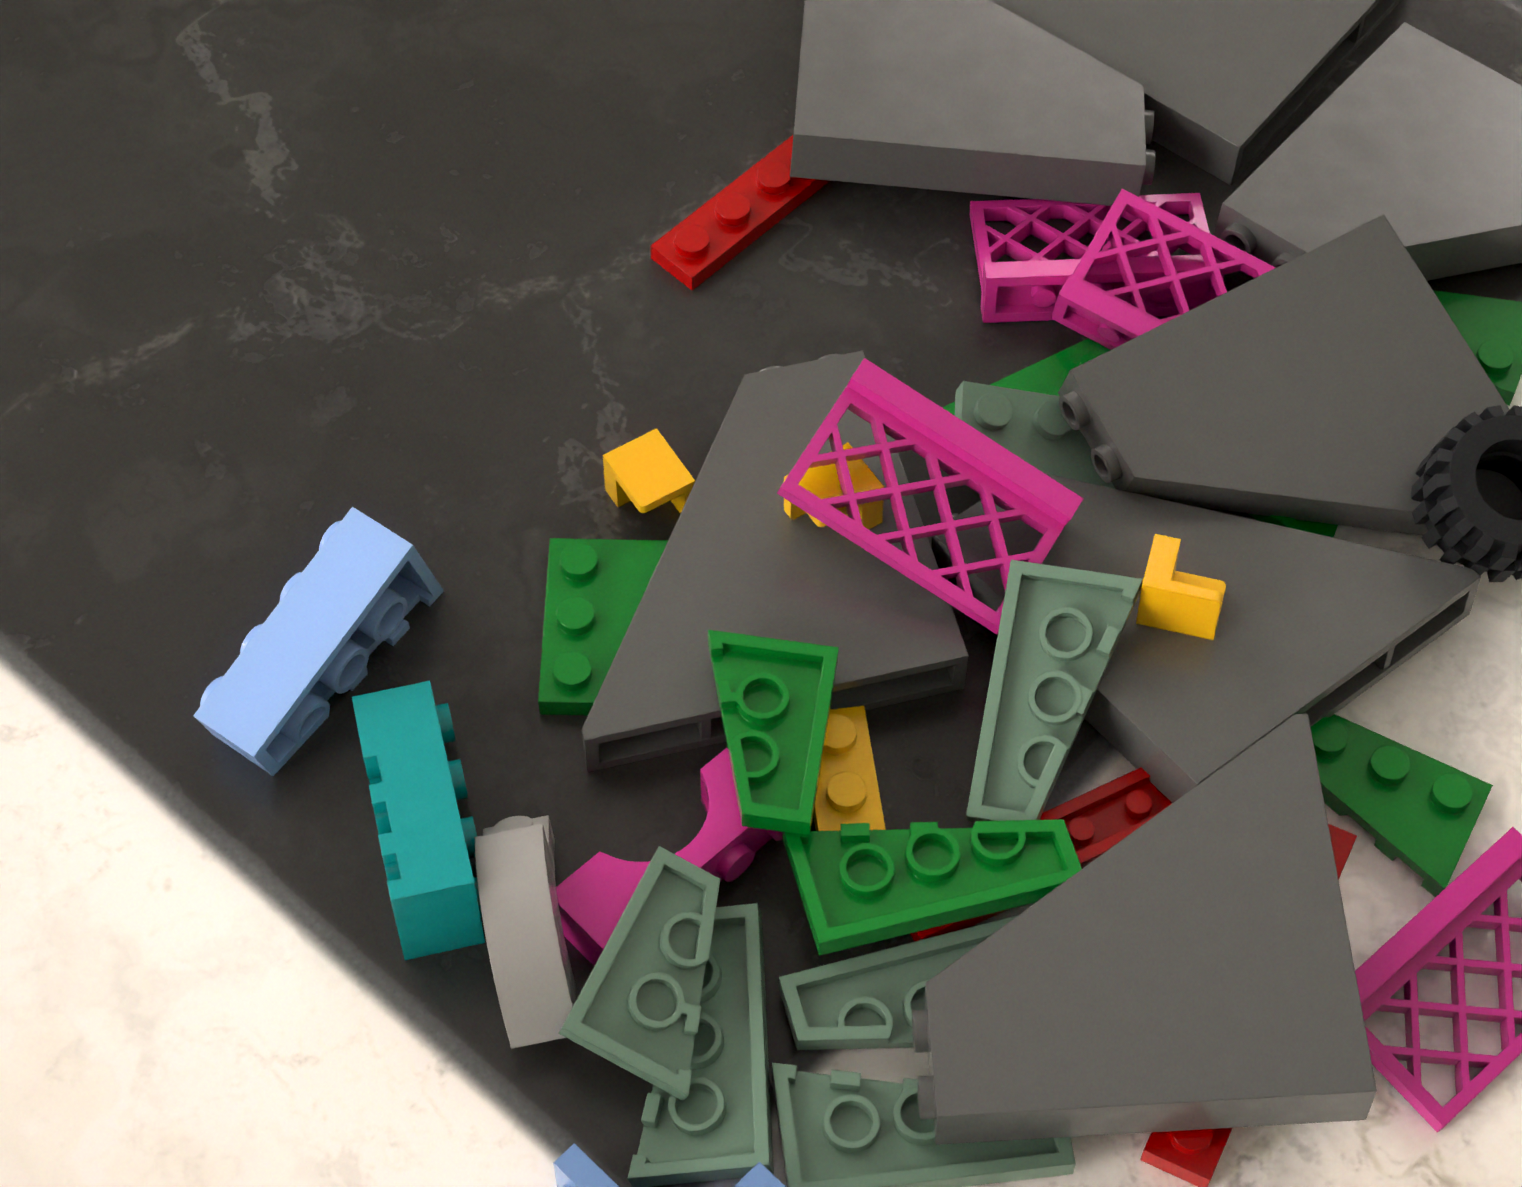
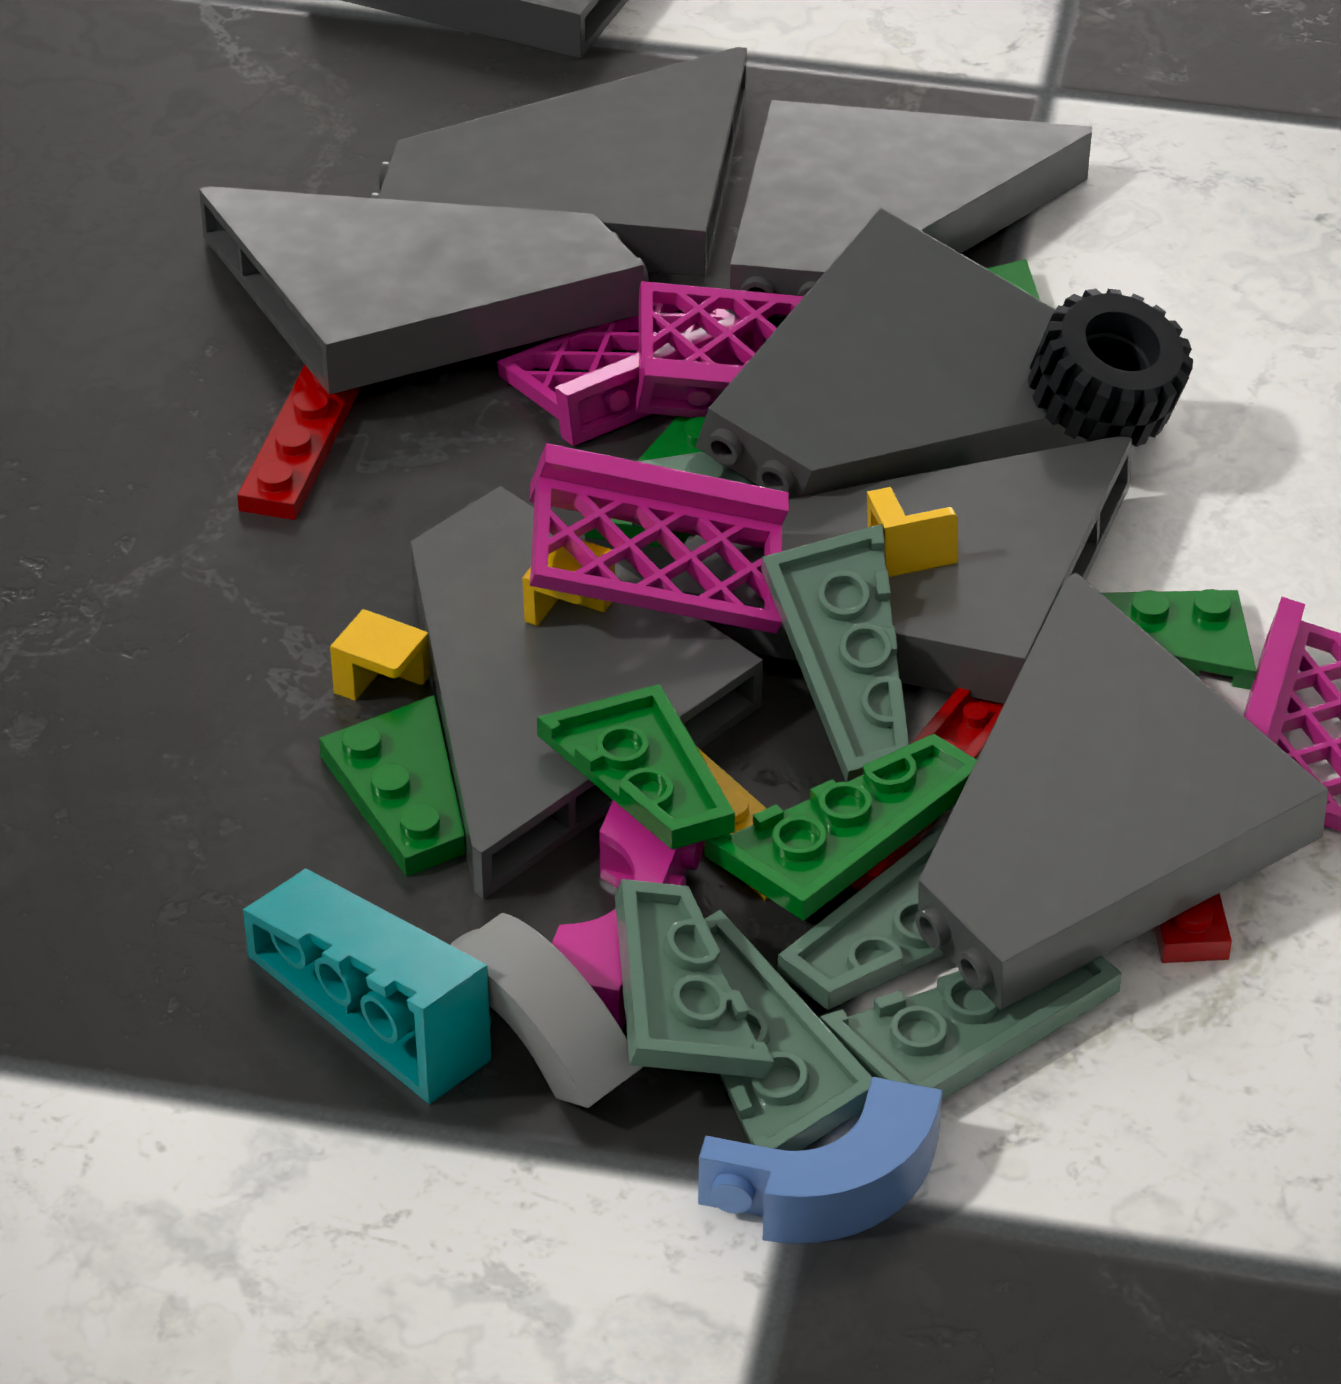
camera: 30 degrees left, 15 degrees down
(317, 640) = (170, 886): light blue wedge -> none

